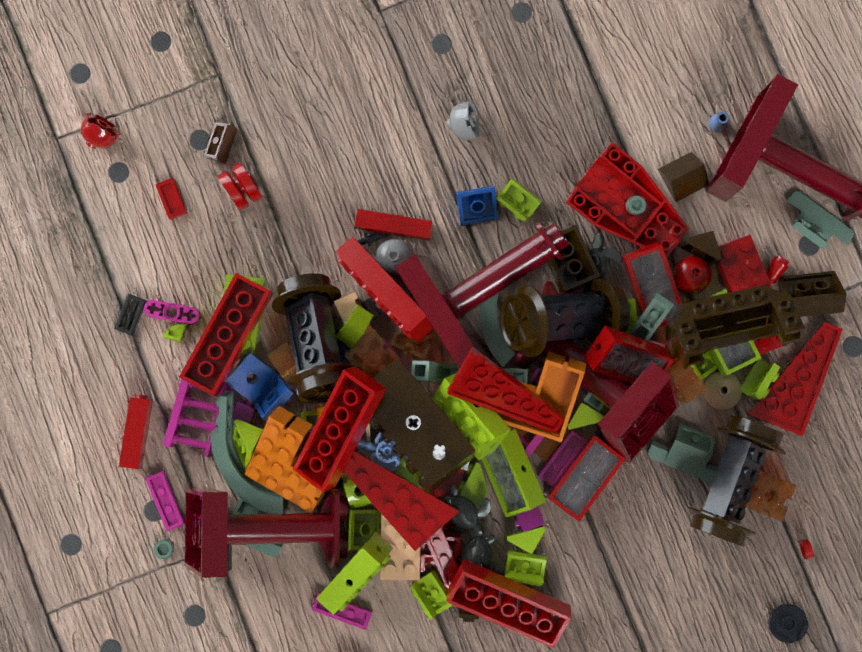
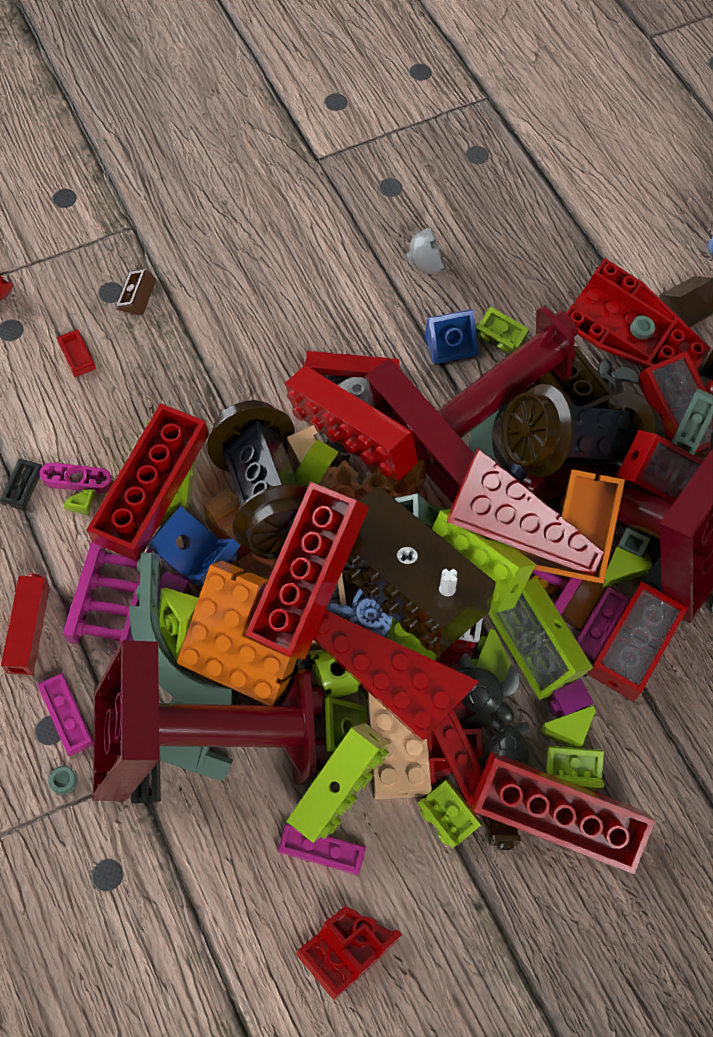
camera: 10 degrees left, 20 degrees down
(240, 186) = (162, 327): red wheel -> none

